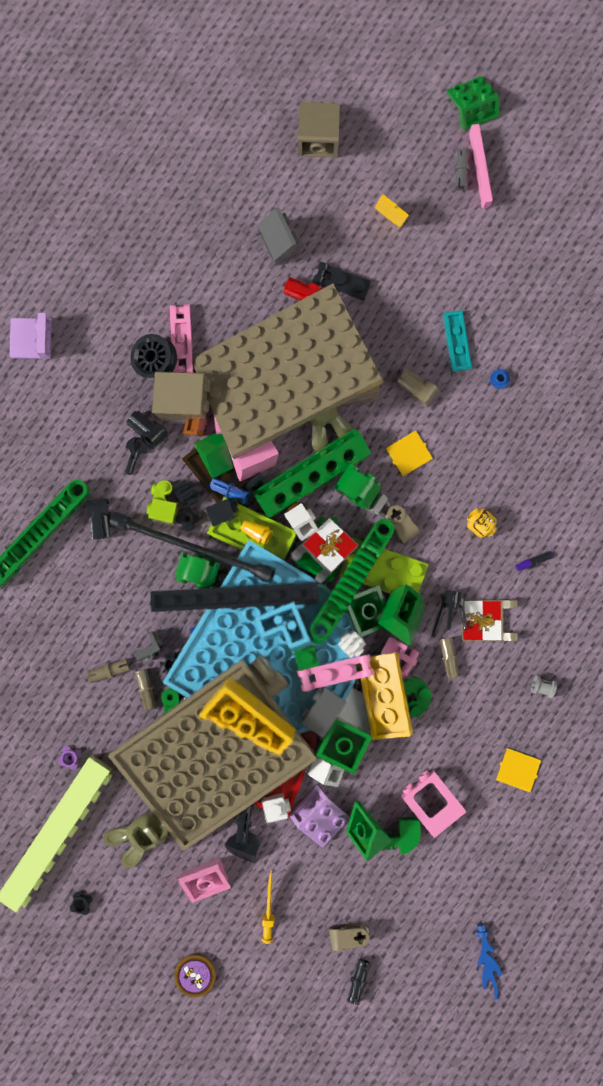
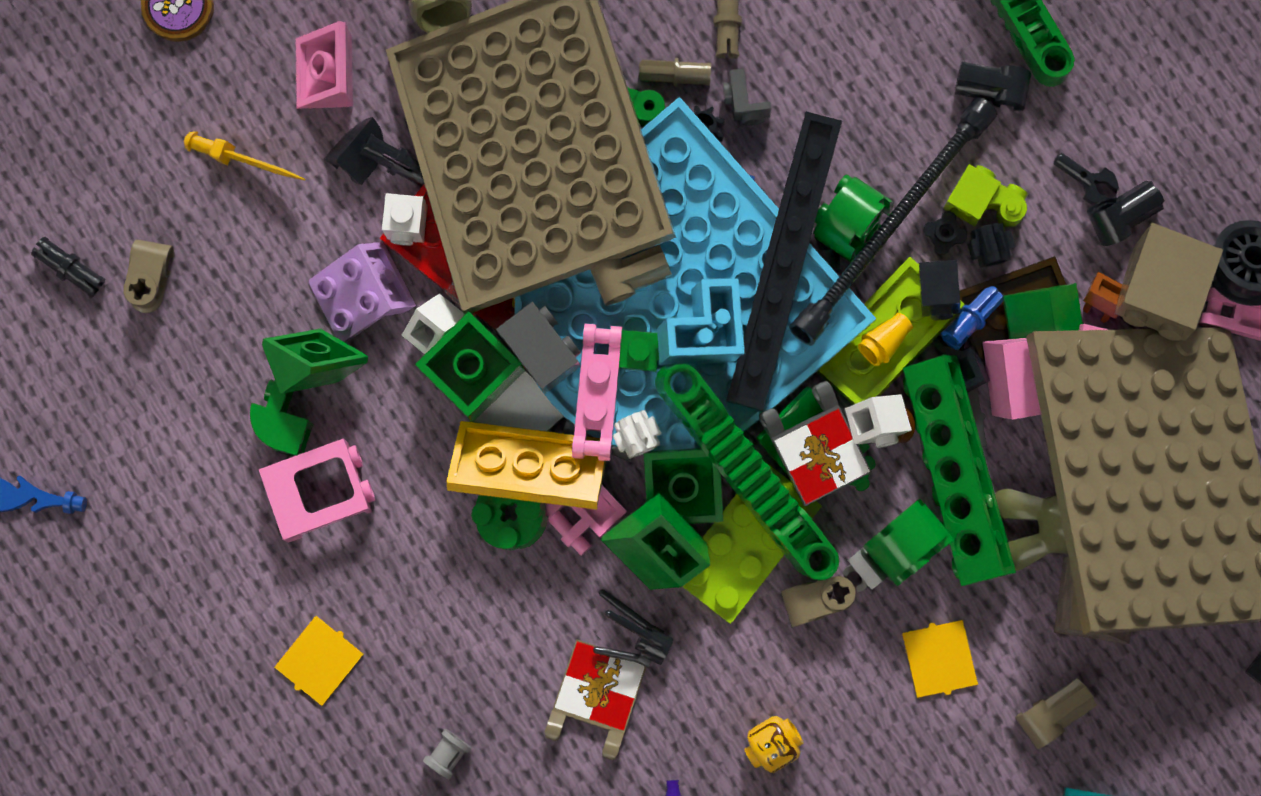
camera: 115 degrees right, 5 degrees down
(248, 717) = (574, 213): yellow wedge -> none
(449, 658) = (554, 605): dark tan axle -> none

